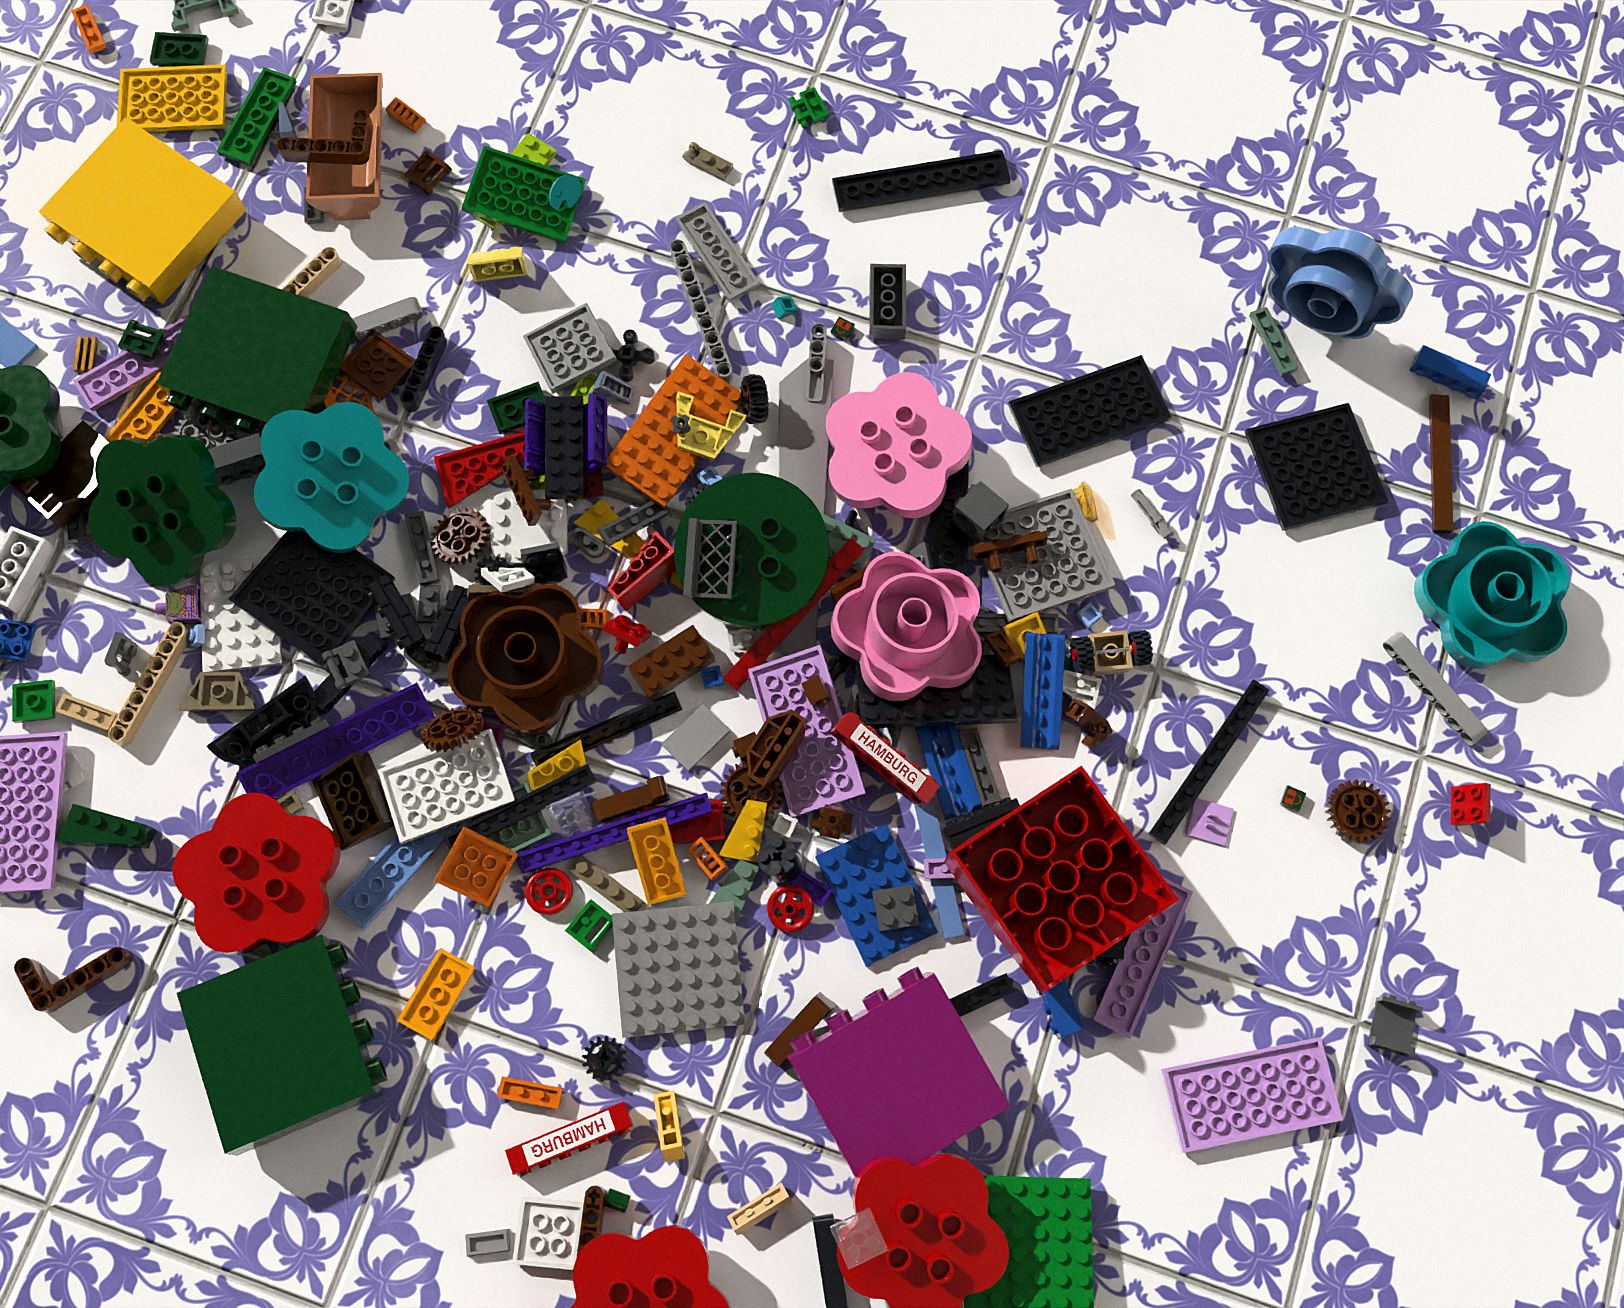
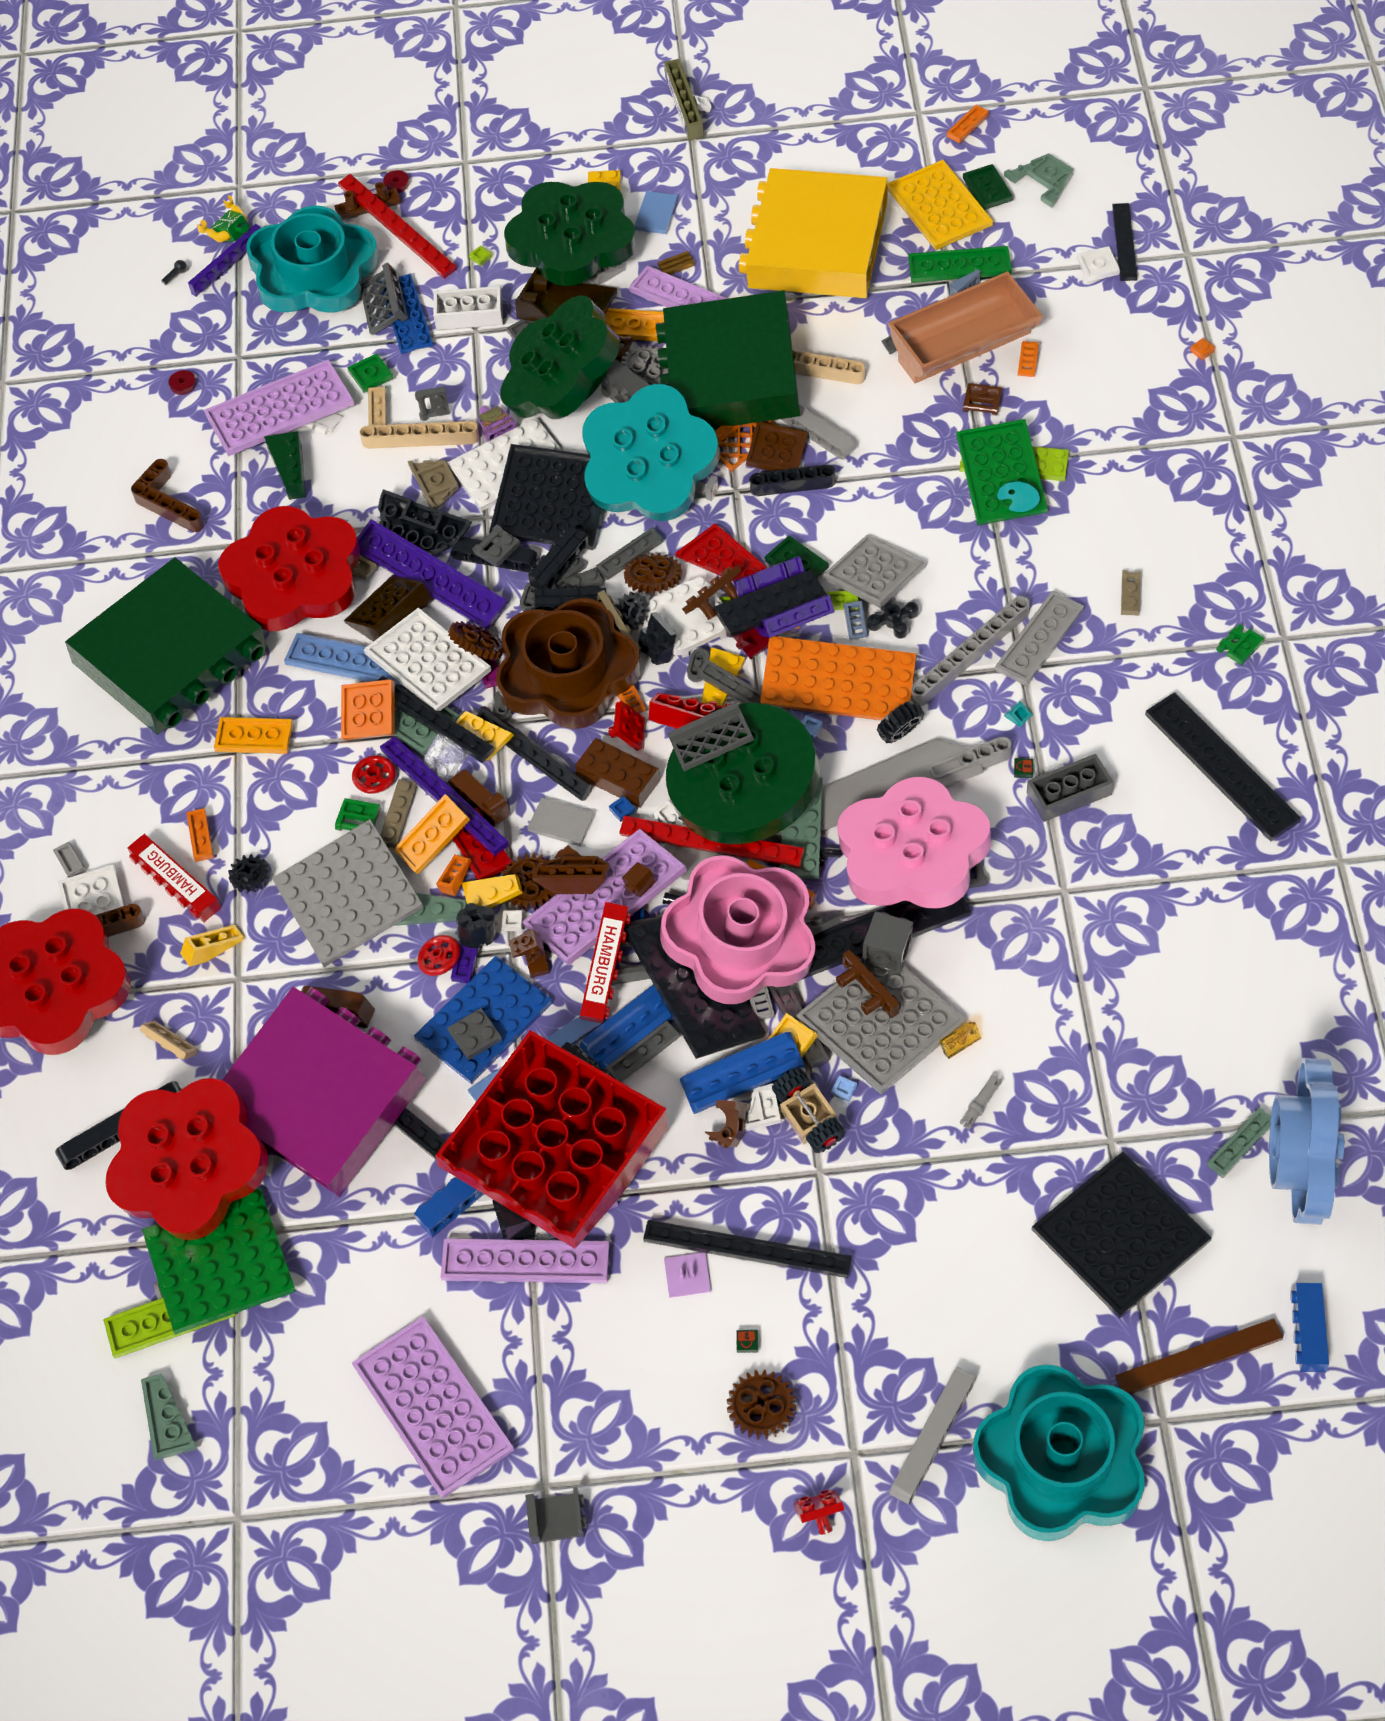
camera: 75 degrees right, 15 degrees down
(141, 344) = (700, 288): dark green plate -> none
(197, 635) = (473, 443): light blue plate -> none
(283, 742) = (410, 536): dark grey plate -> none
(332, 150) = (950, 330): reddish brown beam -> none
(497, 264) = (922, 484): light yellow slope -> none
(508, 578) = (626, 616): white wing -> none
(617, 1200) = (136, 933): dark green piece -> none
(684, 427) = (836, 677): dark grey plate -> none
(705, 437) = (840, 697): light yellow wing -> none
(859, 1238) = (161, 1096): clear plate -> none
(1003, 648) = (765, 1021): reddish brown plate -> none
(1089, 411) = (1061, 1005): black plate -> none

